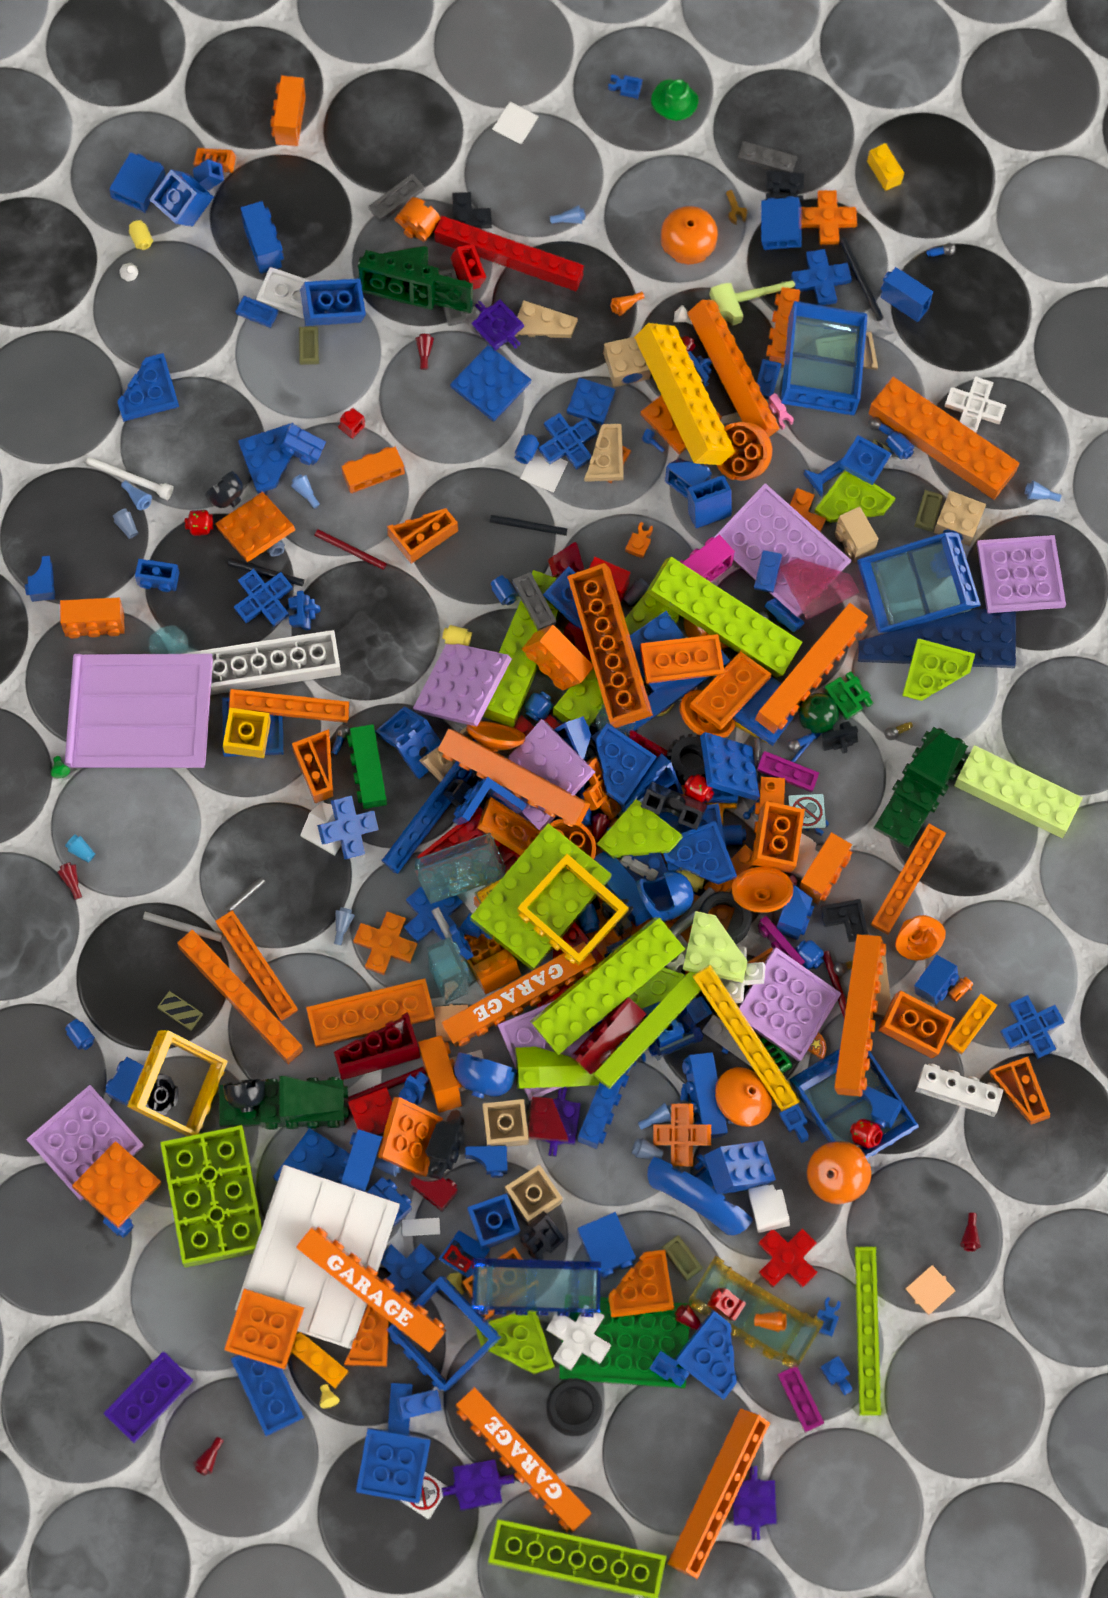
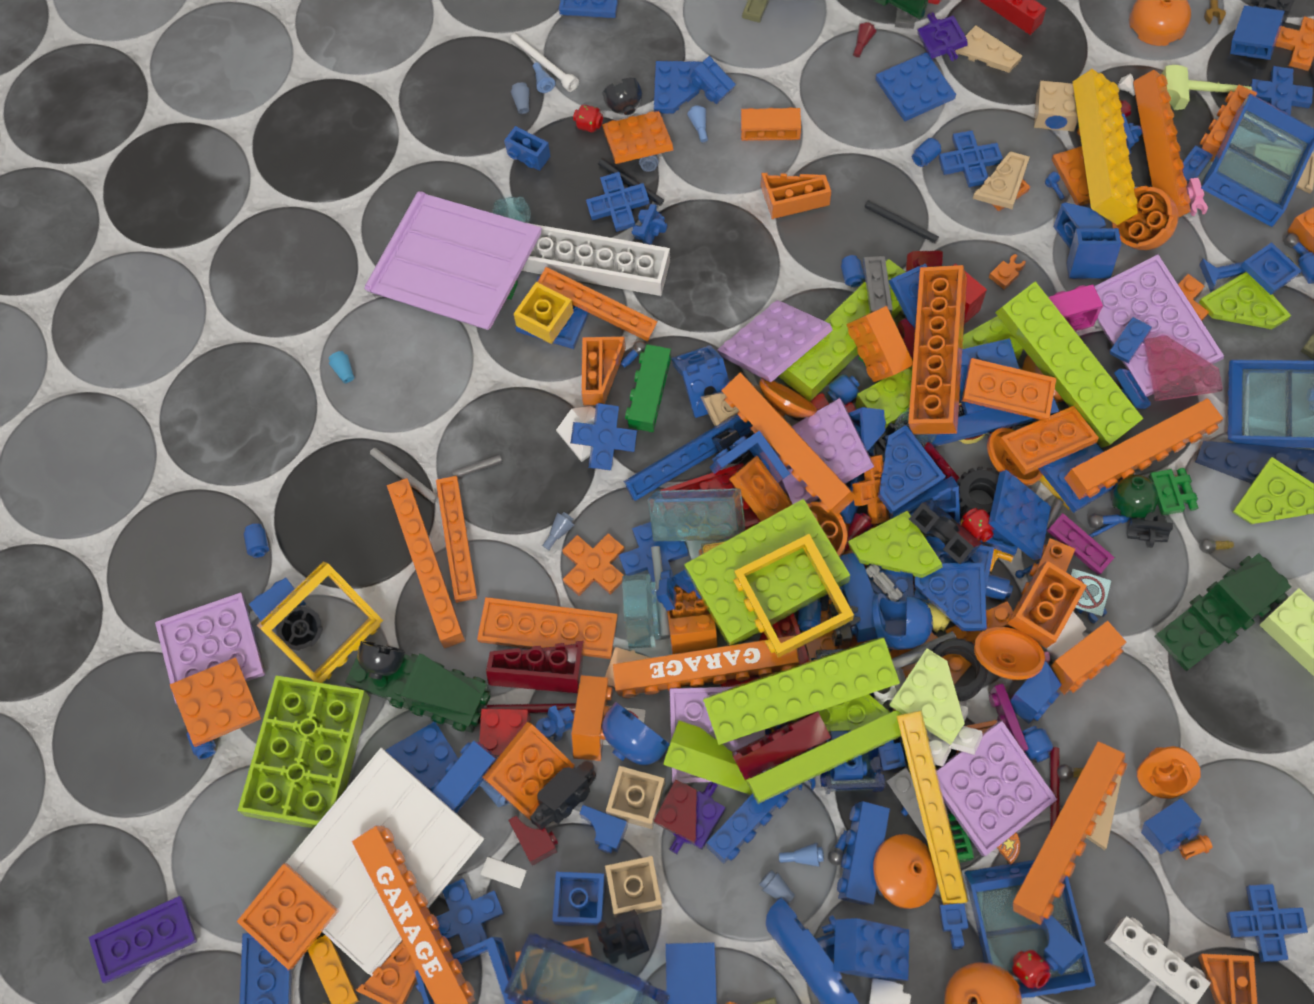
camera: 30 degrees right, 5 degrees down
(41, 584) = (421, 123): blue arch -> none
(59, 768) = (358, 289): green rock -> none
(69, 876) = (320, 387): dark red cone -> none
(92, 617) = (450, 164): orange brick -> none
(180, 1011) = (363, 554): olive tile -> none
(350, 549) = (720, 188): dark red bar -> none
(351, 423) = (767, 72): red brick -> none
(387, 1190) = (481, 820): blue brick -> none
(456, 635) = (788, 295): light yellow brick -> none
(456, 1280) = (512, 945): light yellow rock -> none
(460, 1253) = (534, 917): sticker -> none
(542, 474) = (933, 180): white sticker -> none
(591, 401) = (1007, 131): blue plate -> none
(622, 304) = (1072, 56): orange cone -> none
(636, 592) = (983, 316): sand blue cone -> none
(682, 1134) = (821, 886): orange plate -> none
(847, 913) = (1095, 715): black plate -> none
(856, 534) = (1238, 334): tan brick -> none
(908, 879) = (1175, 704): orange plate -> none
(916, 1024) = (1132, 867): orange brick -> none
(971, 1024) = (1195, 891): light orange plate -> none

